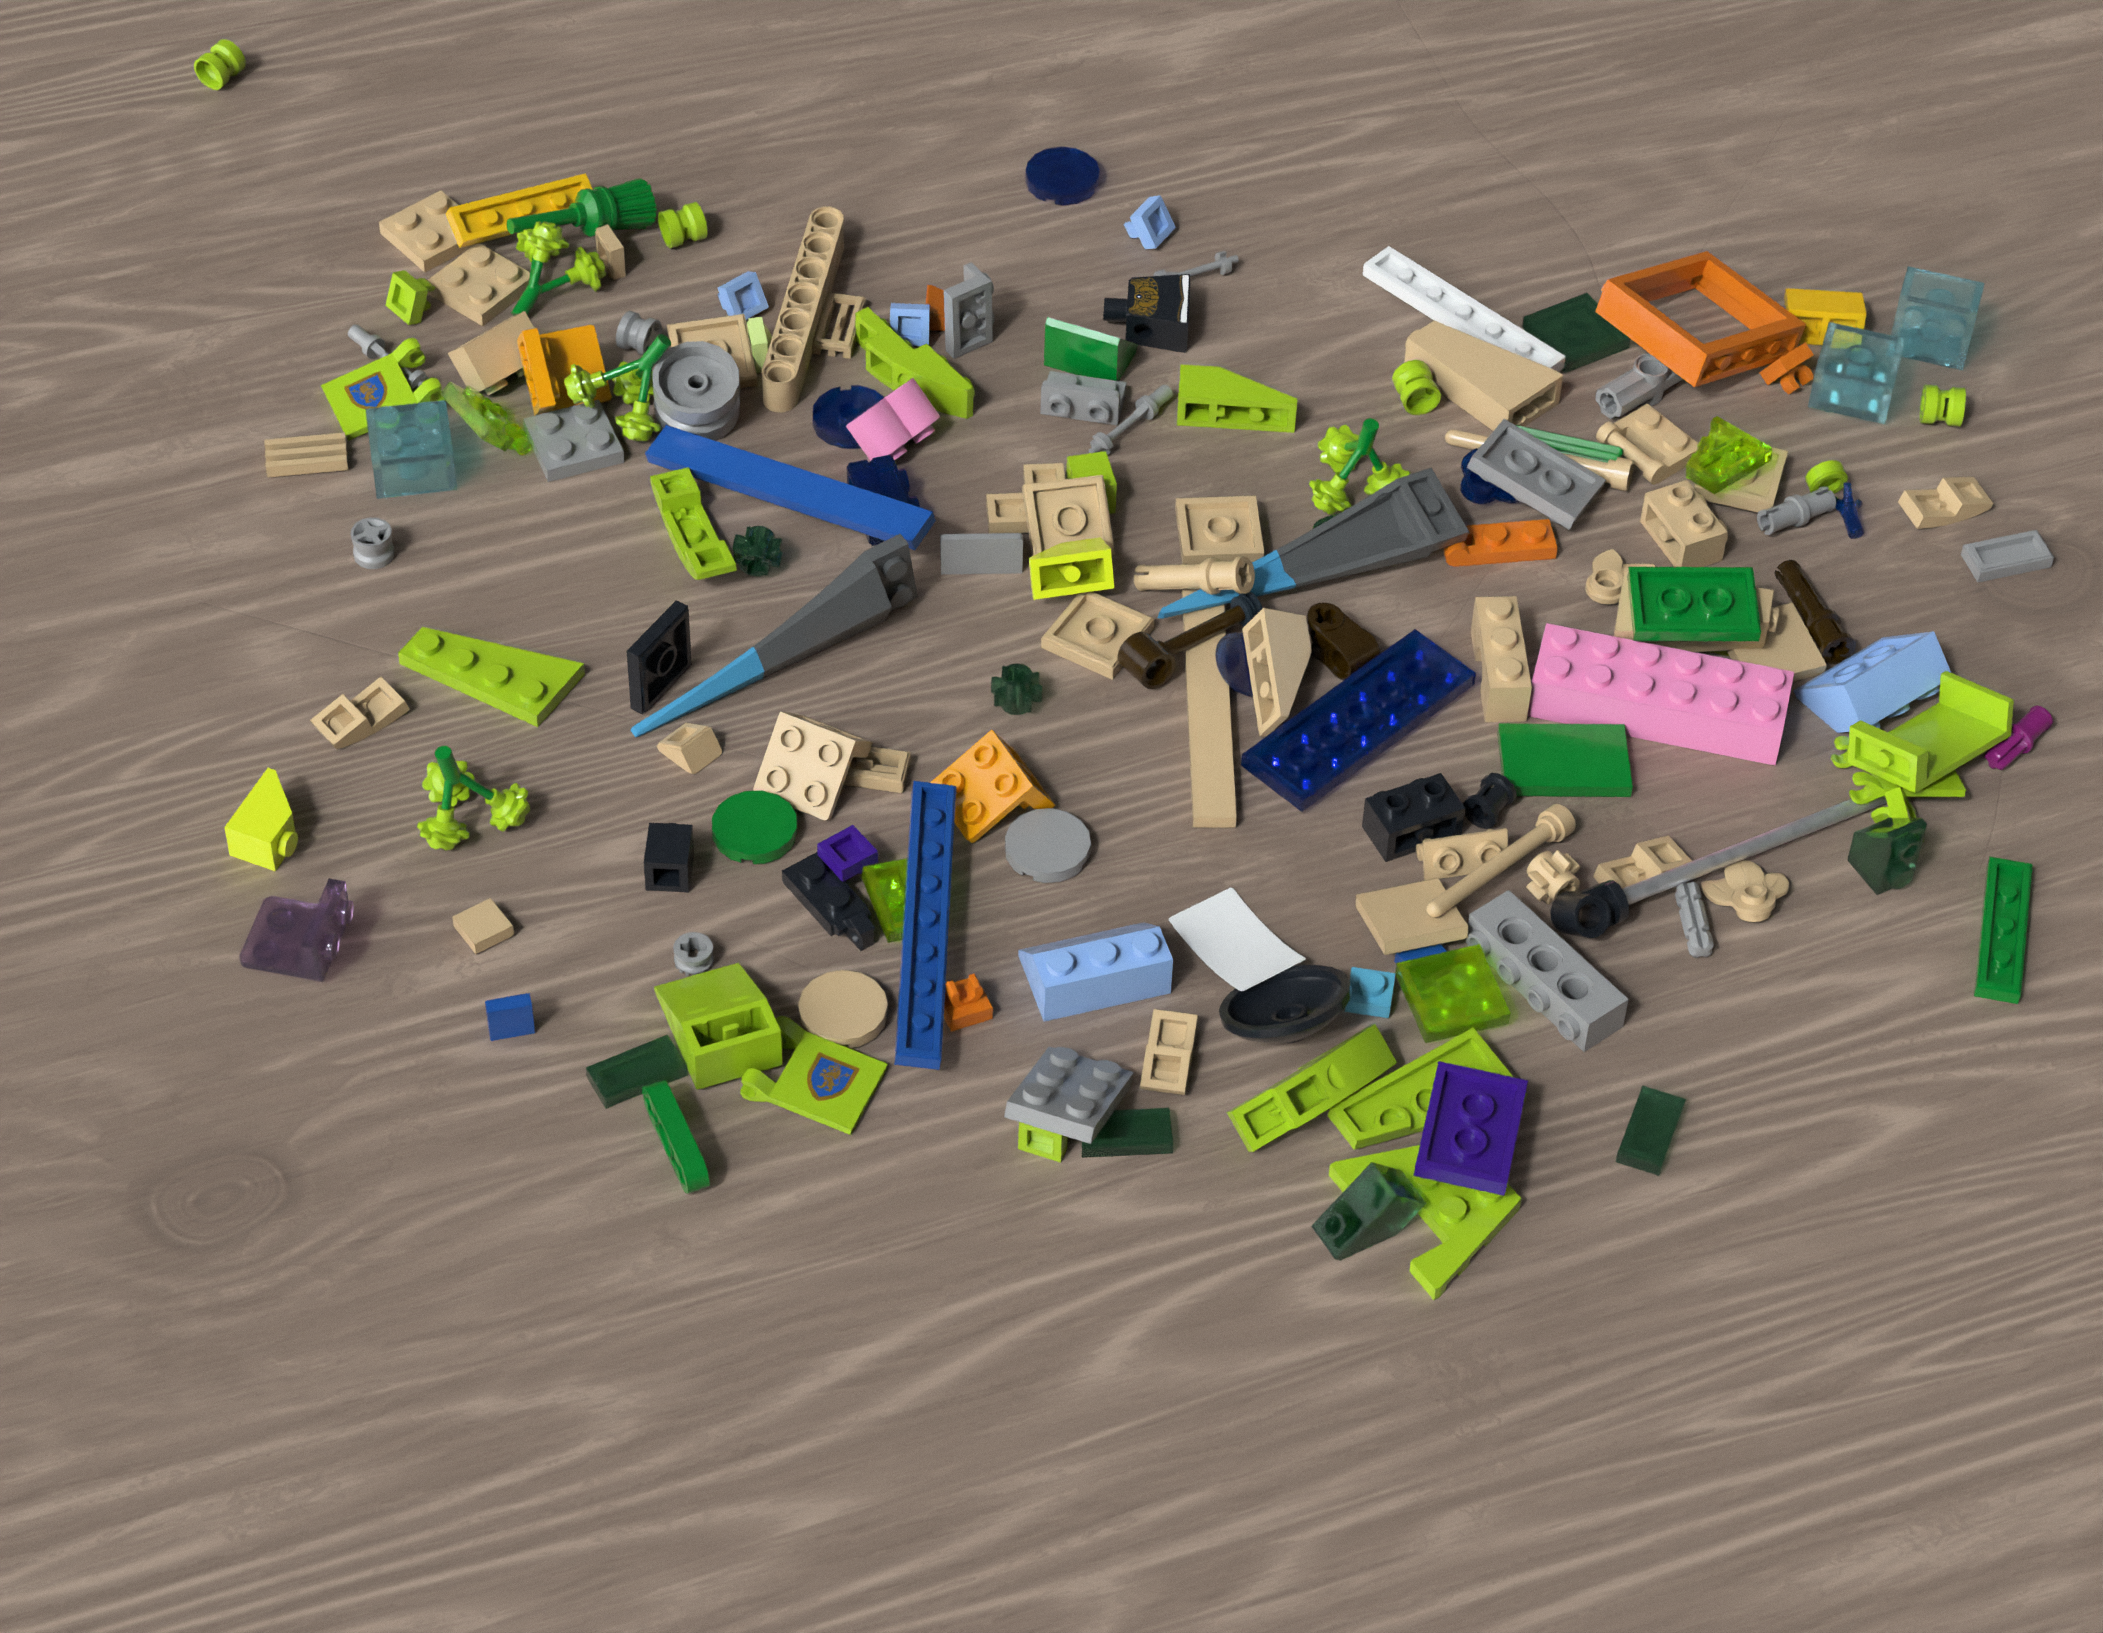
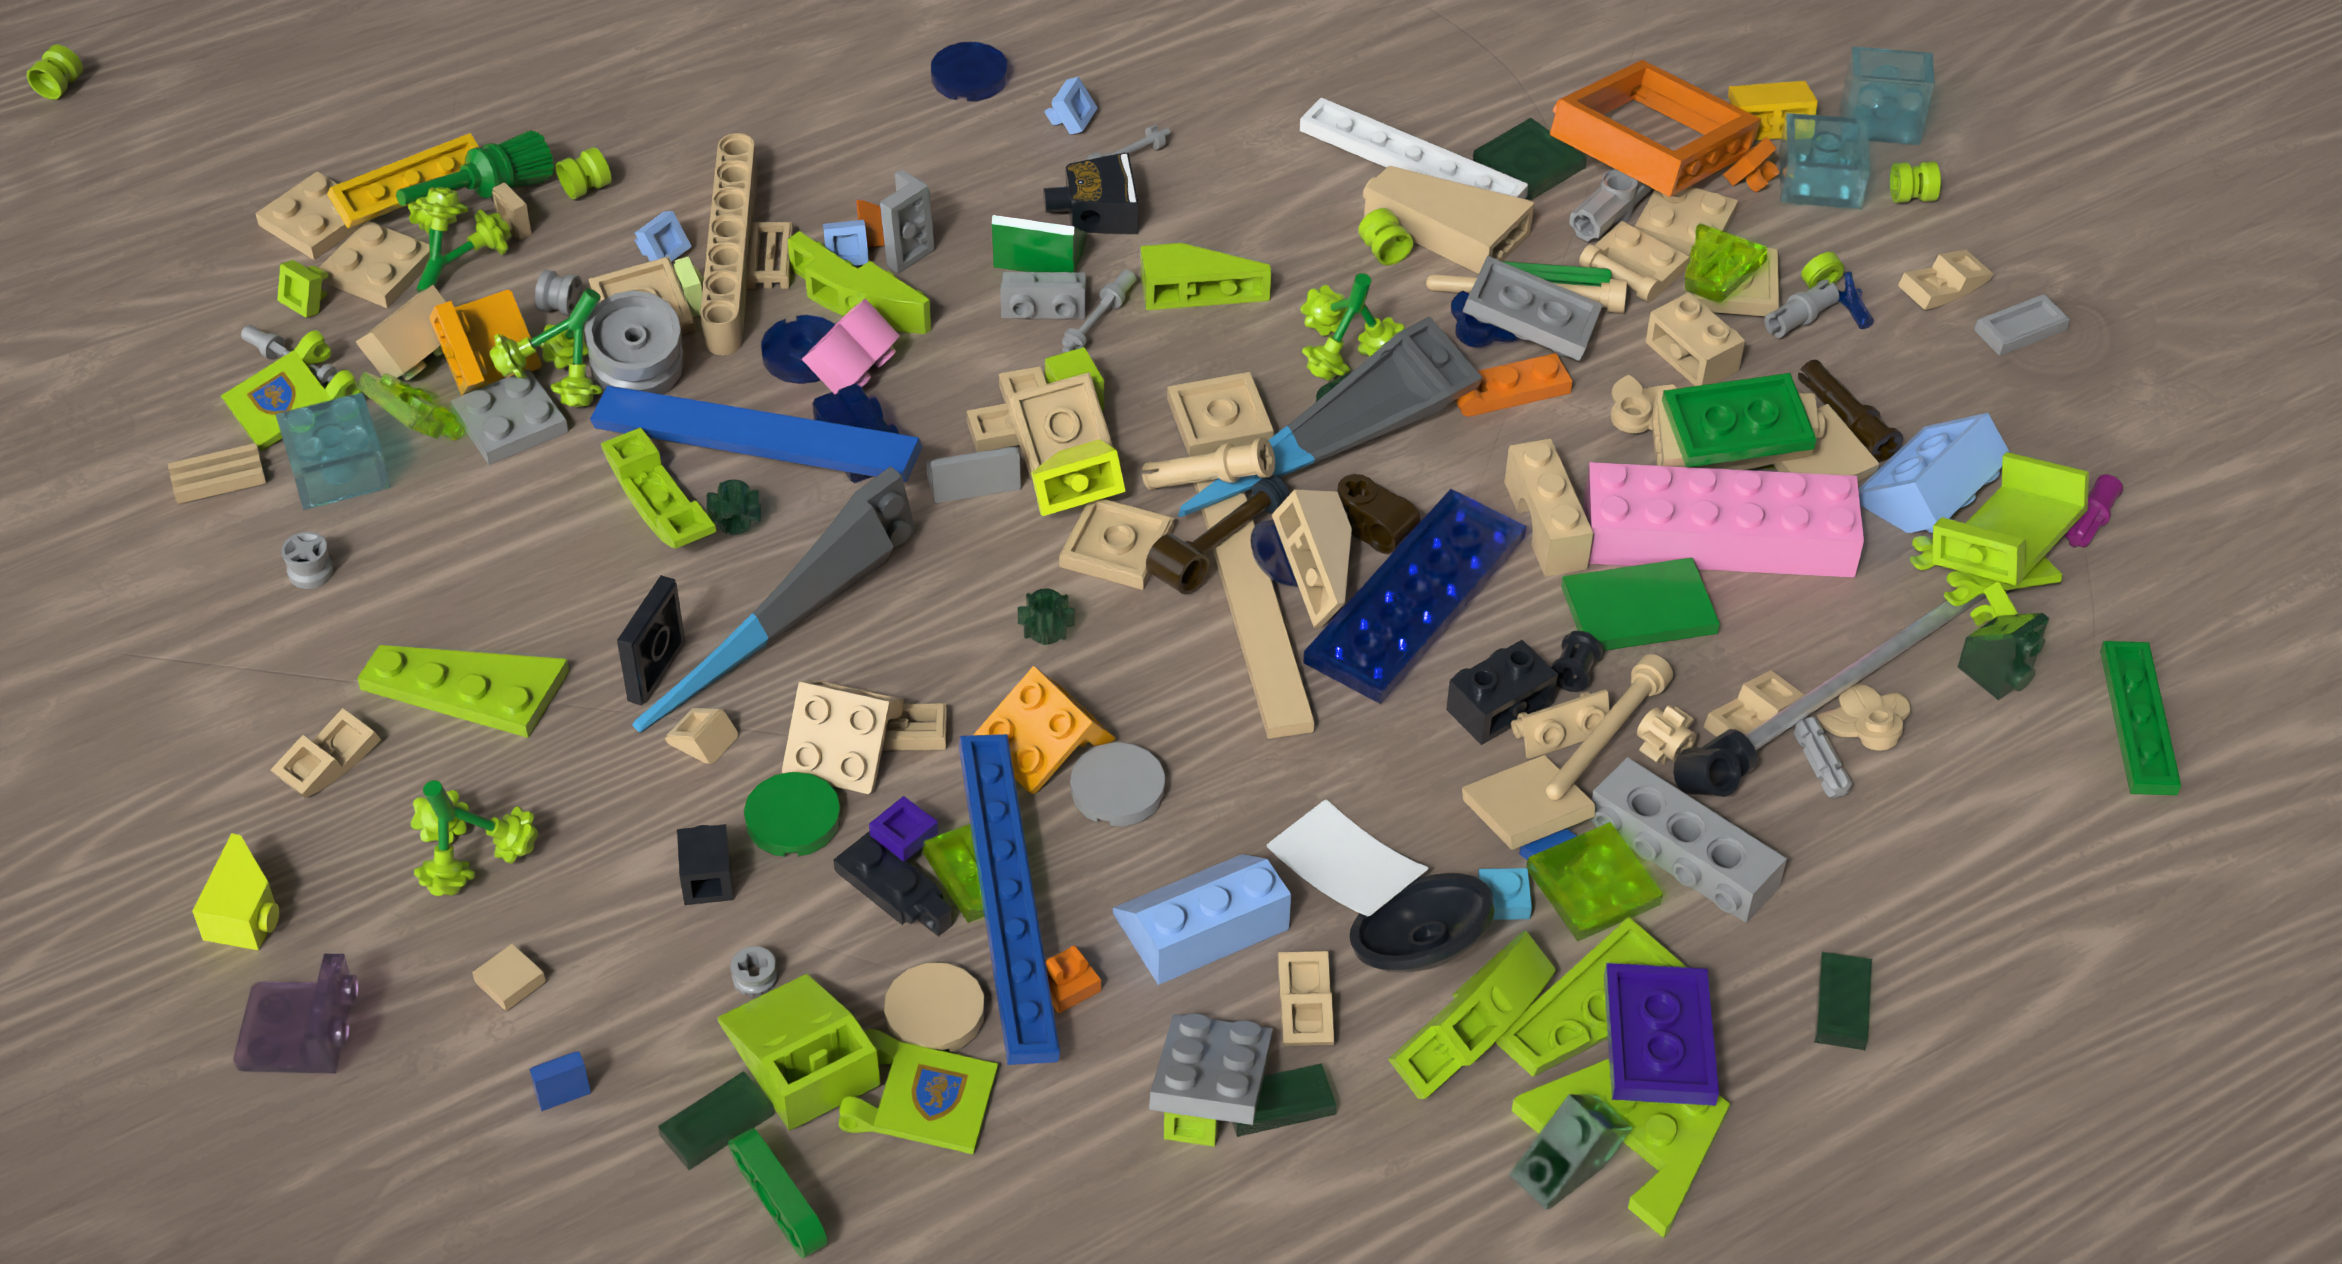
camera: 10 degrees left, 0 degrees up
(1695, 407) = (1676, 217): none -> tan plate

